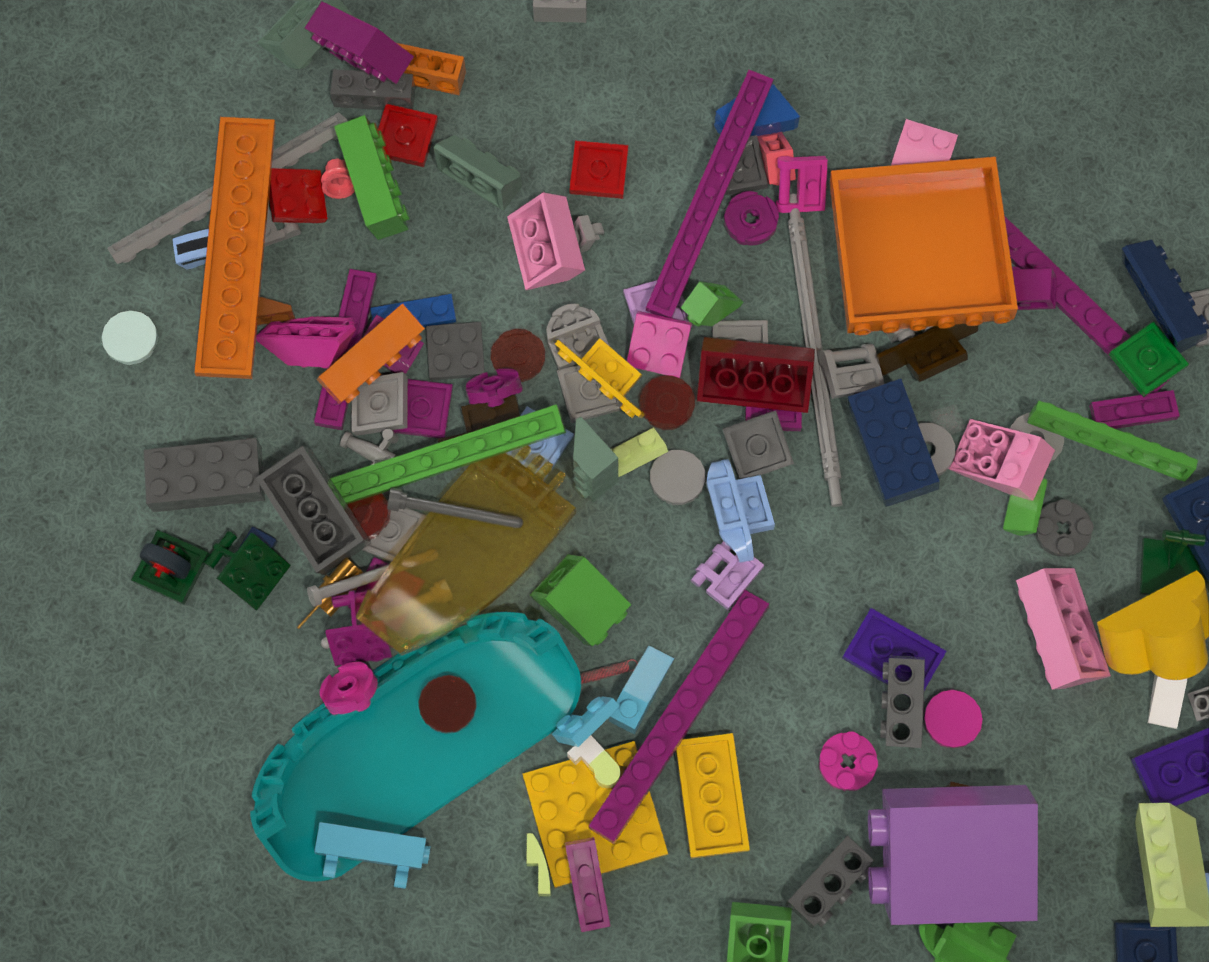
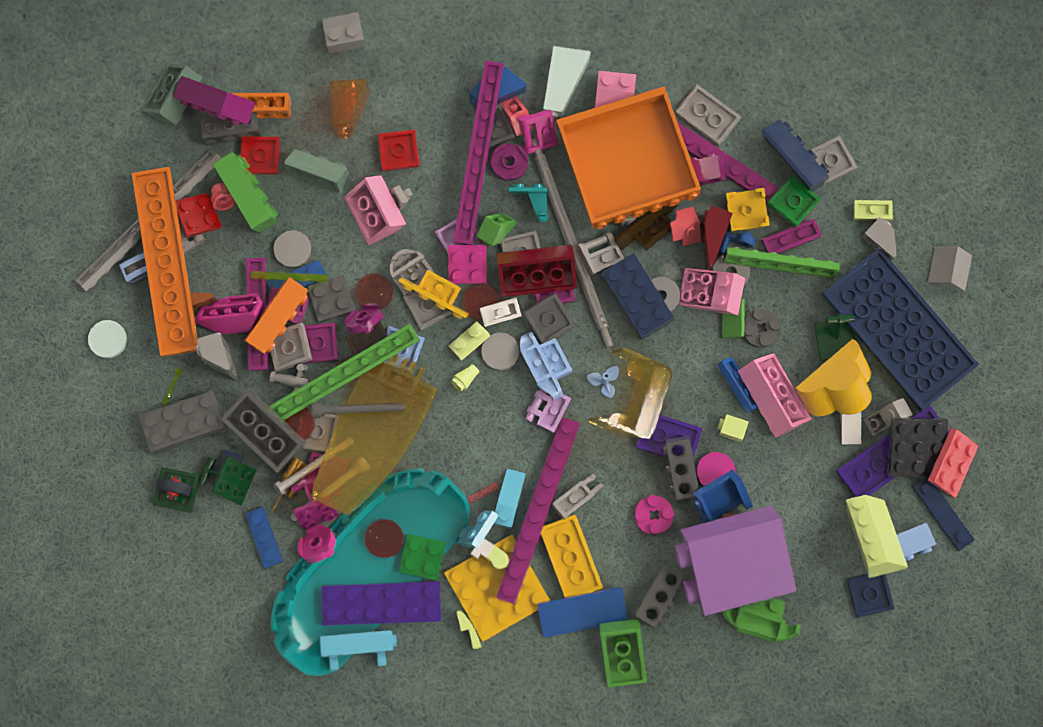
camera: 15 degrees left, 5 degrees up
(188, 439) = (165, 401): none -> clear neon green hinge
(274, 388) = (217, 354): none -> light grey slope
(276, 663) = (264, 537): none -> blue plate
(394, 303) = (295, 276): none -> clear neon green bar
(418, 271) = (292, 249): none -> light grey tile
(420, 797) = (381, 603): none -> dark purple plate
(496, 743) = (422, 557): none -> green plate
(542, 91) = (347, 105): none -> clear orange slope
(581, 599) = (455, 449): bright green slope -> none
(587, 884) = (503, 635): magenta plate -> none
(593, 463) = (443, 357): sand green slope -> none
(616, 503) = (464, 378): none -> yellowish green cone
(690, 421) = (500, 311): none -> white slope
(710, 878) = (582, 611): none -> blue piece
(739, 709) = (575, 497): none -> light grey hinge
(780, 270) = (538, 198): none -> teal plate
(825, 545) = (610, 375): none -> light blue plant
(854, 119) = (564, 75): none -> light aqua slope
(875, 589) = (646, 399): none -> clear yellow windscreen
(954, 756) = (721, 496): none -> blue panel
(984, 361) = (686, 227): none -> coral brick
(991, 661) = (732, 428): none -> yellowish green brick
(1004, 579) = (729, 370): none -> blue plate
(1026, 367) = (713, 231): none -> dark red slope
(1048, 215) = (707, 115): none -> light grey tile
(1064, 397) = (744, 239): none -> blue plate
(1078, 356) = (747, 209): none -> yellow panel

